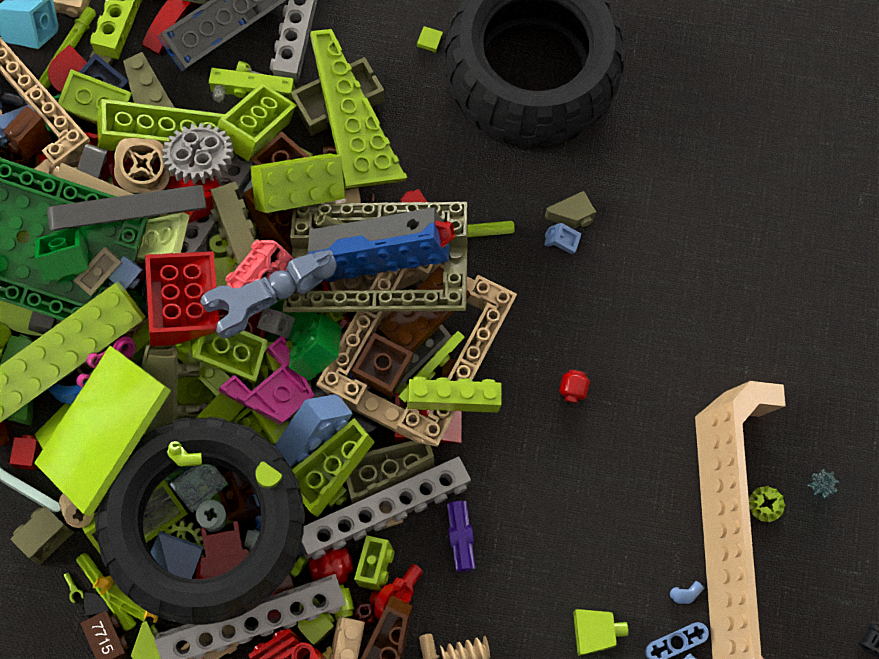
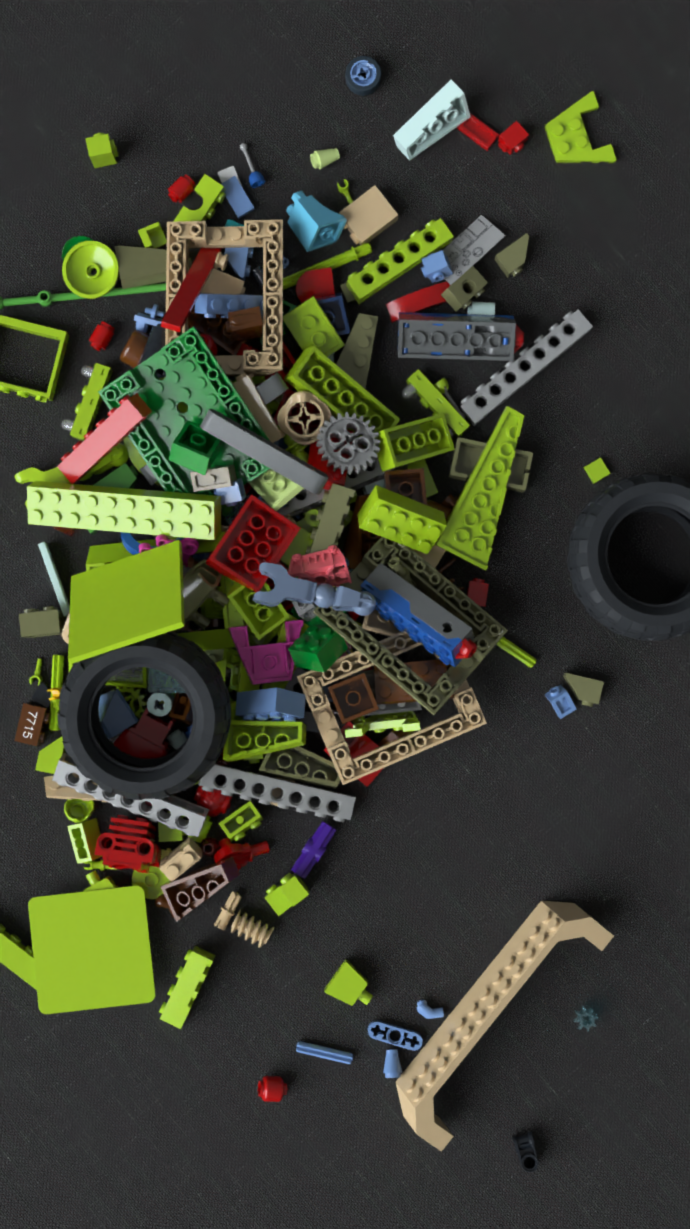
camera: 40 degrees right, 15 degrees up
(25, 452) = (74, 554): red brick -> none
(181, 457) = (157, 674): lime arm -> none
(267, 476) = (202, 732): lime brick -> none
(453, 395) = (379, 763): lime brick -> none
(472, 589) = (287, 893): none -> lime brick
(574, 386) = (475, 813): red head -> none
(764, 513) = (531, 990): lime gear -> none

